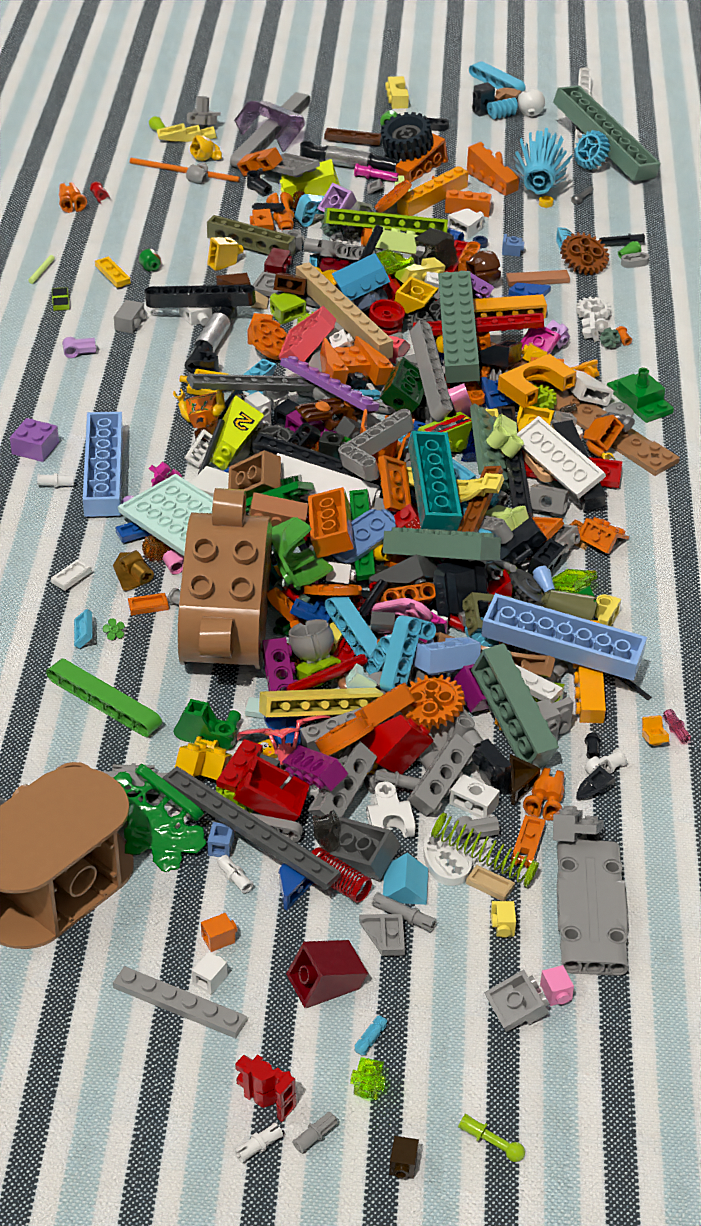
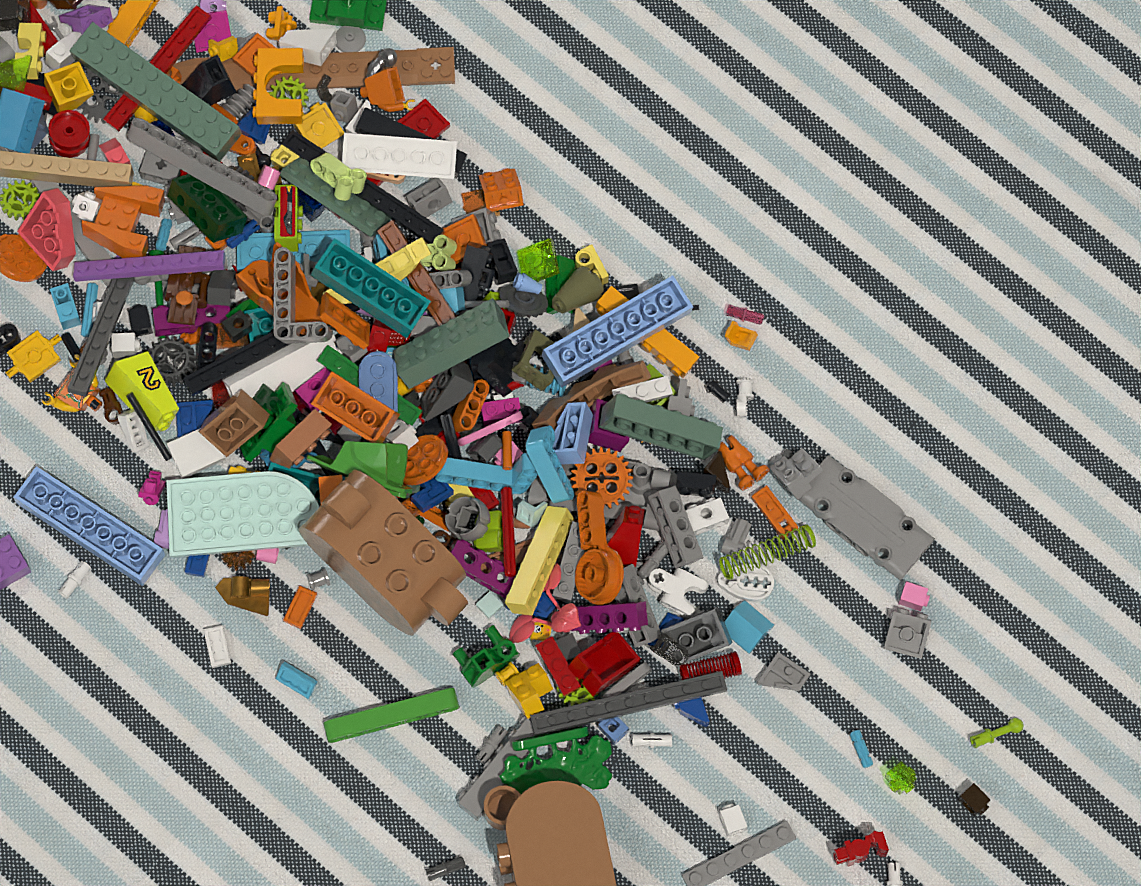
camera: 55 degrees left, 30 degrees up
(113, 629) = (314, 655): bright green plant -> none
(218, 932) = (700, 789): orange brick -> none
(314, 1132) = (913, 842): light grey axle -> none
(325, 971) = (791, 741): dark red slope -> none
(356, 381) = (148, 229): black brick -> none
(411, 915) = (780, 645): light grey pin -> none
(490, 883) = (789, 567): tan tile -> none
(503, 918) = (832, 586): light yellow brick -> none
(595, 783) = (756, 421): black plate -> none

